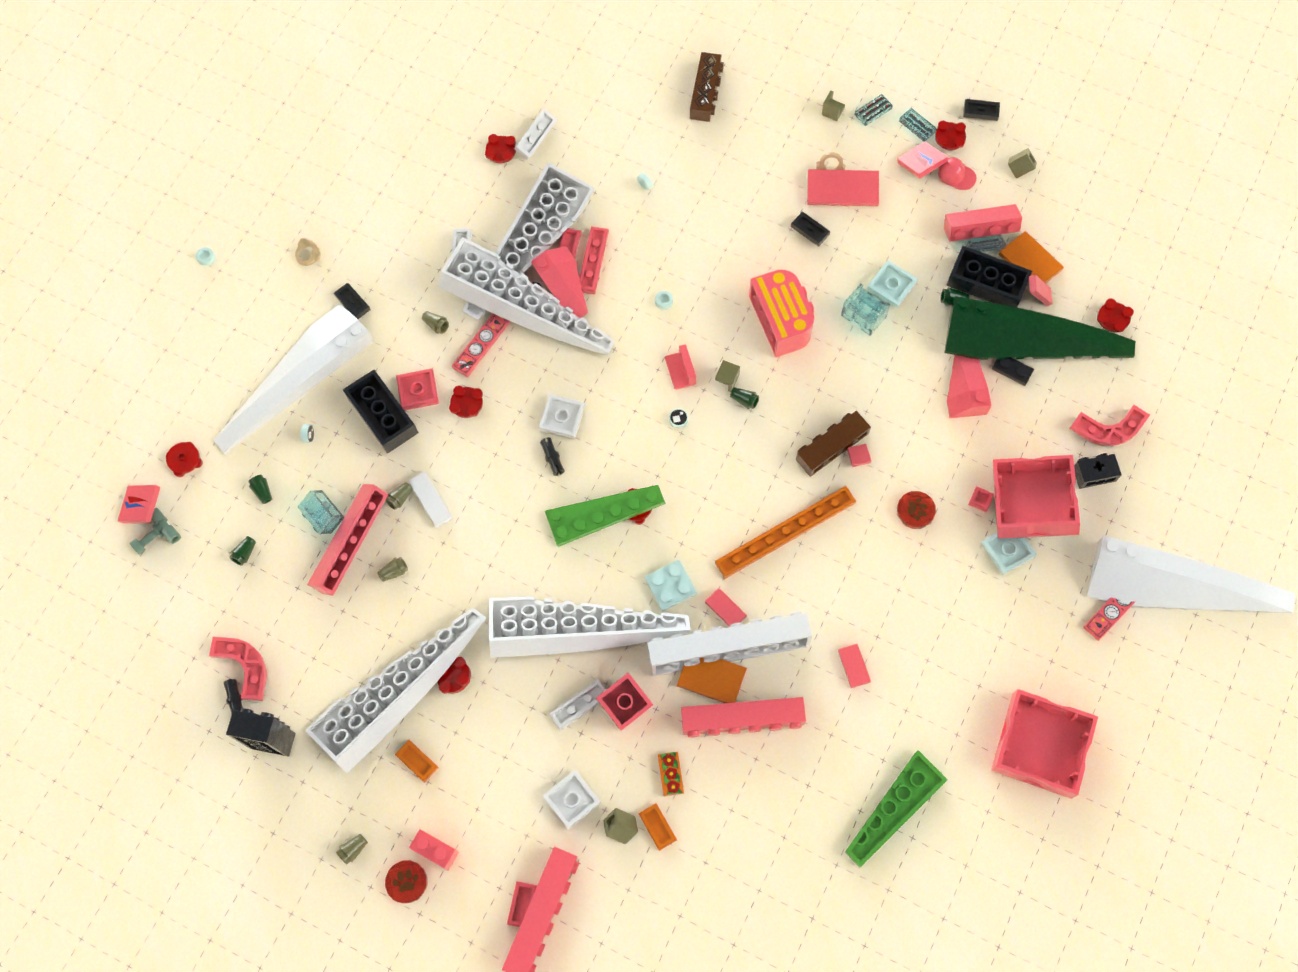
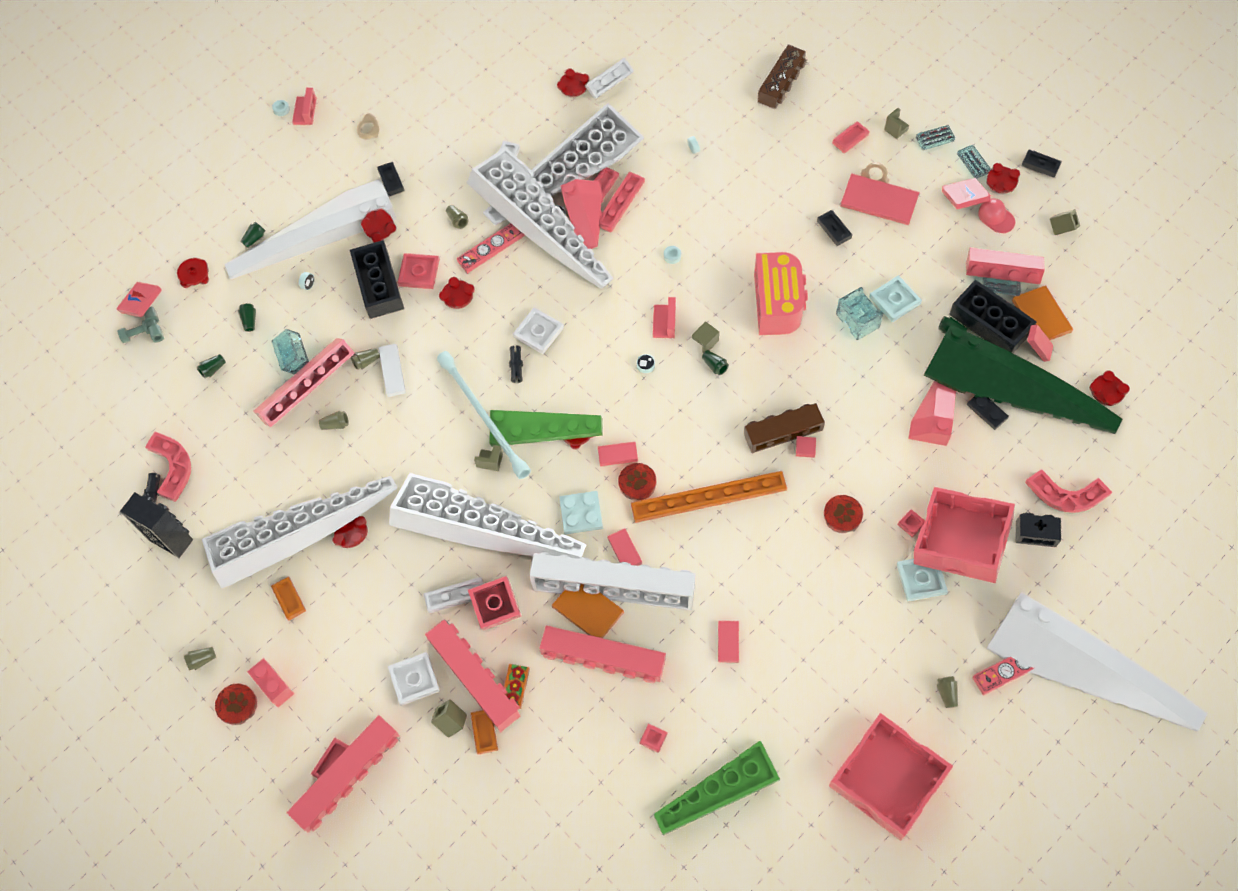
camera: 20 degrees right, 5 degrees down
(231, 250) = (305, 108): none -> coral panel
(231, 400) = (252, 234): none -> dark green cone
(359, 354) = (378, 224): none -> red piece
(562, 559) = (489, 459): none -> olive panel
(597, 559) = (519, 466): none -> light aqua hose
(628, 777) = (472, 675): none -> coral brick
(684, 516) = (617, 454): none -> coral tile
(713, 538) = (637, 481): none -> clear red tile
(793, 131) = (850, 137): none -> coral tile
(818, 780) = (653, 738): none -> coral tile
(1068, 647) = (948, 690): none -> olive cone

